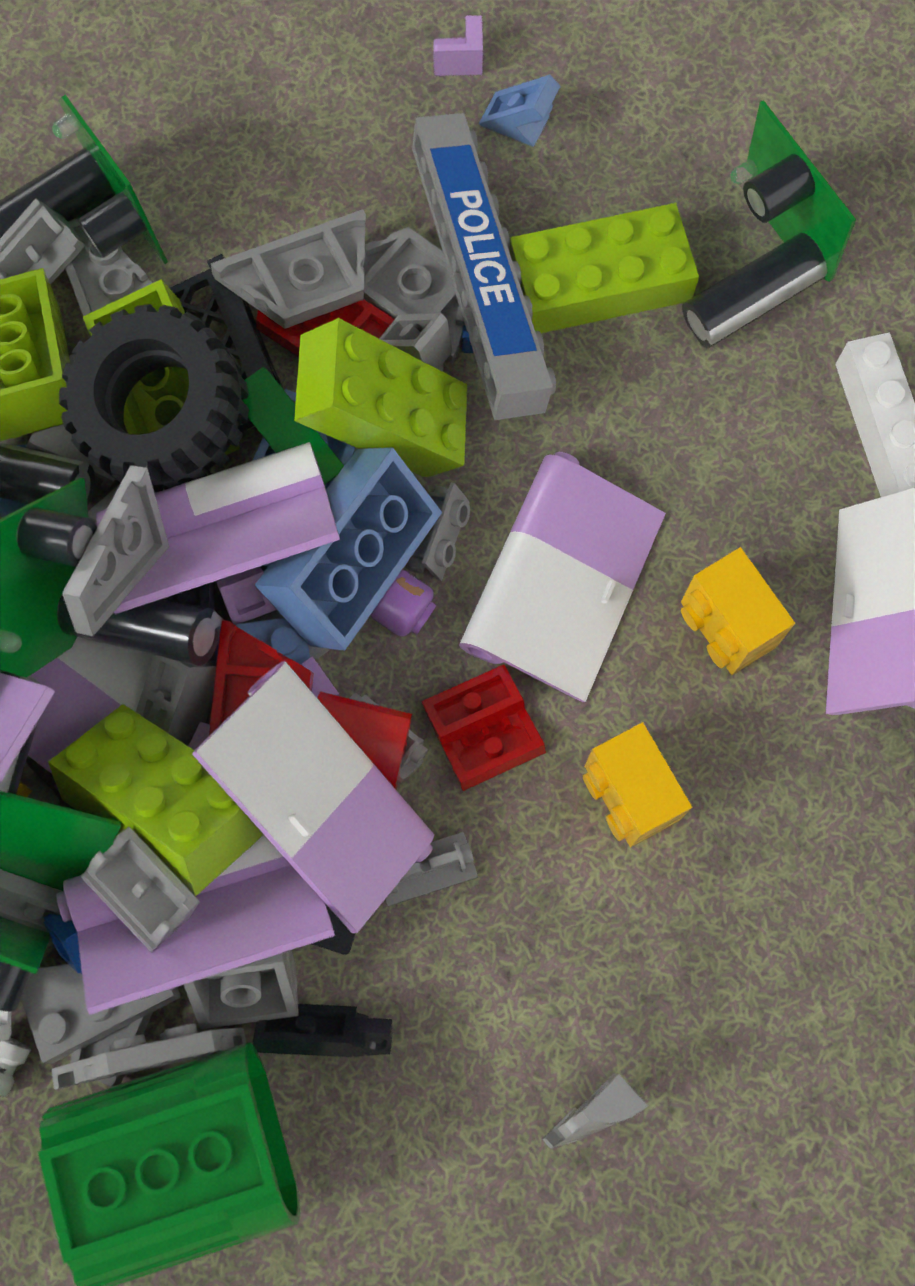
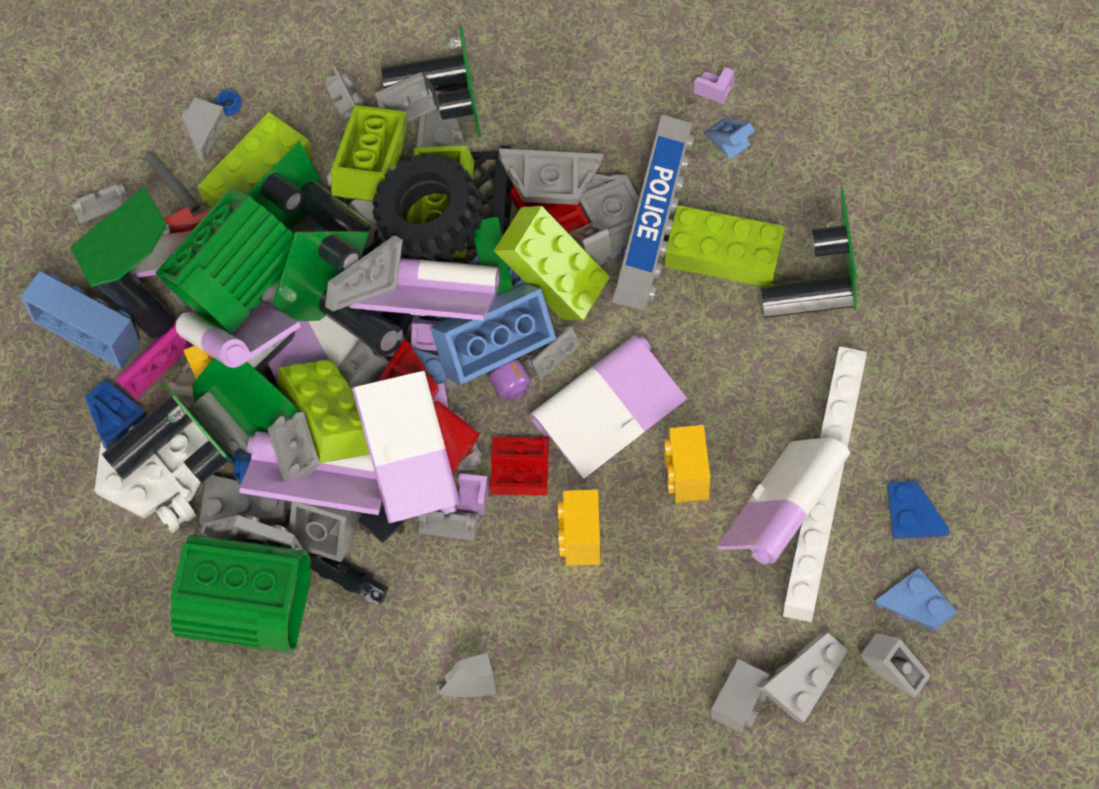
camera: 30 degrees right, 10 degrees down
(442, 806) = (473, 493): none -> lavender panel

